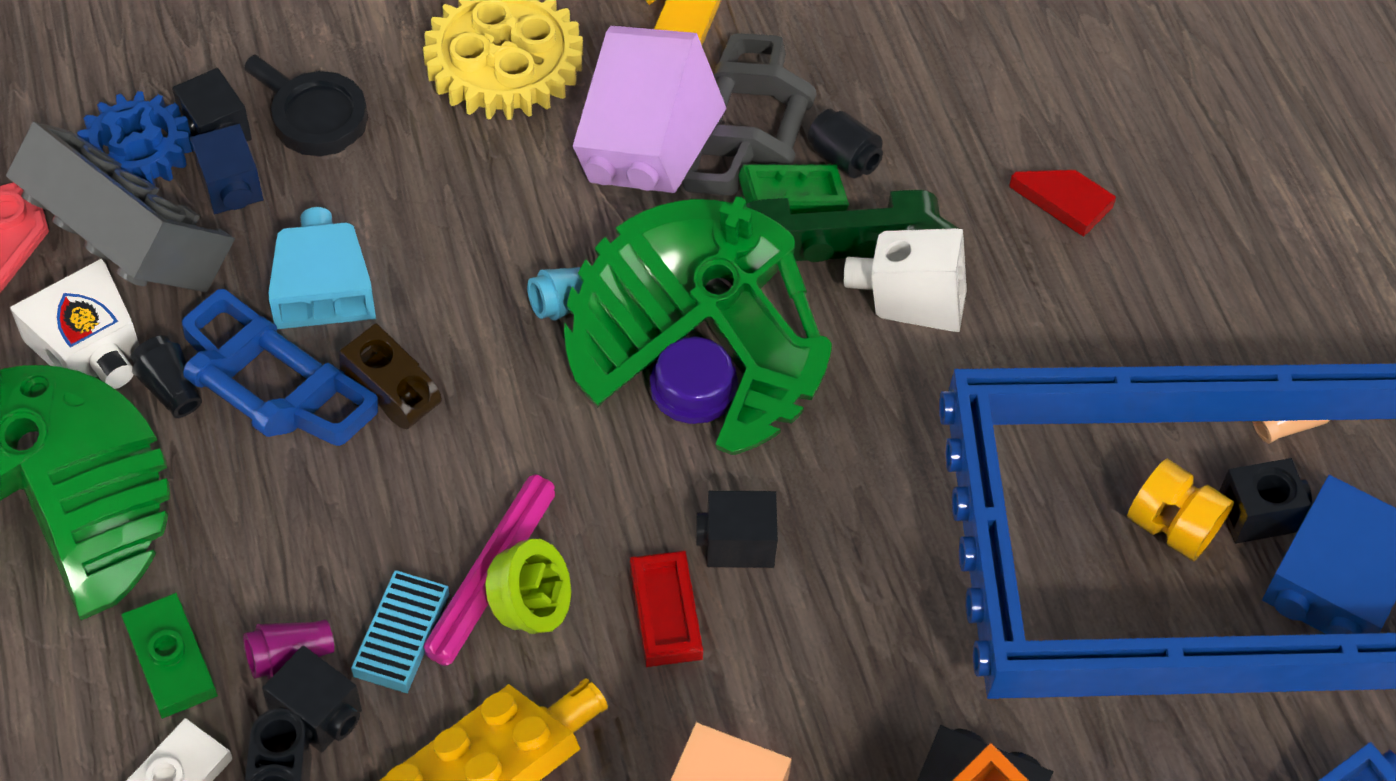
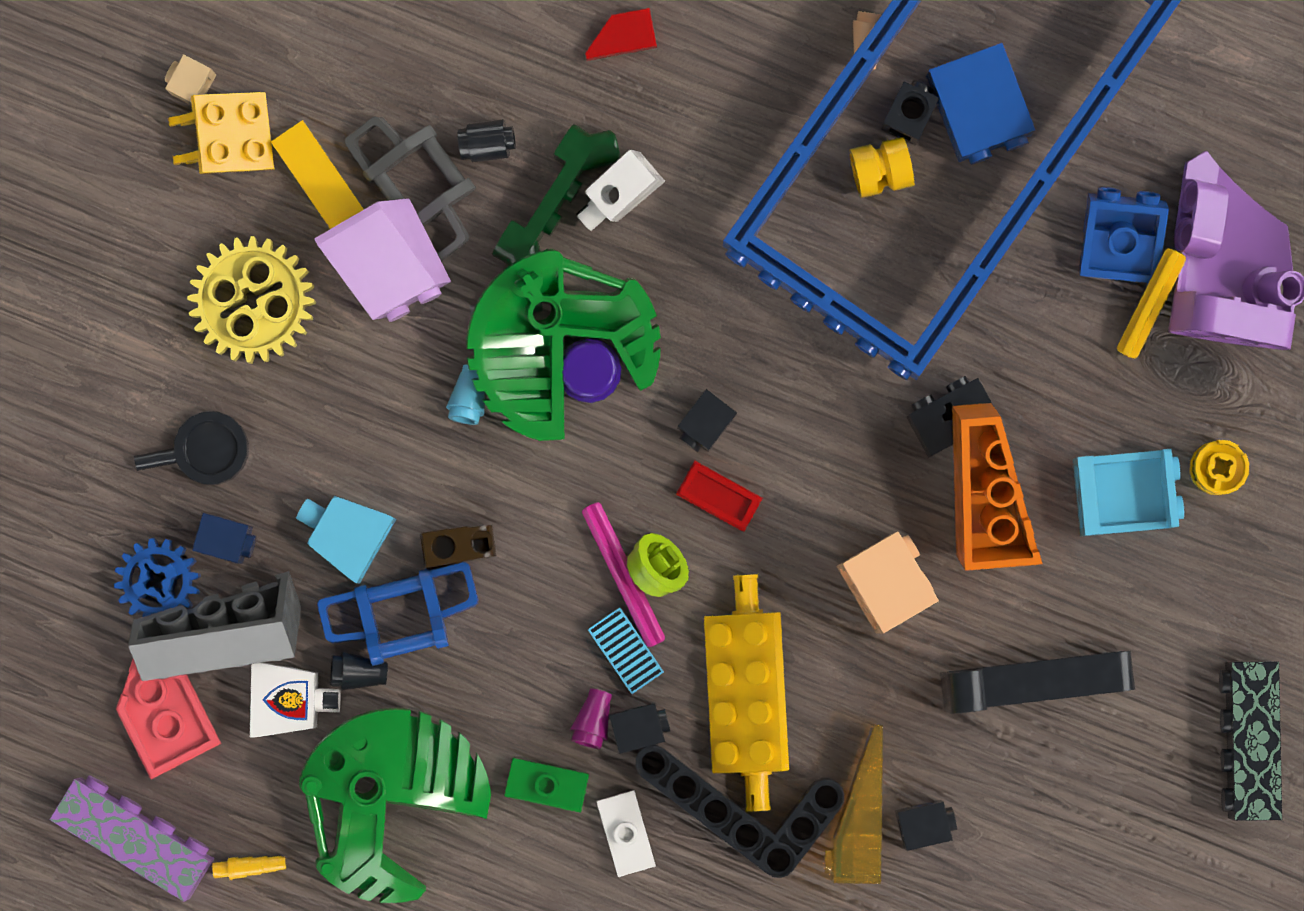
camera: 45 degrees left, 30 degrees up
(210, 104) = (170, 518): black brick -> none
(806, 186) = (497, 202): green plate -> none

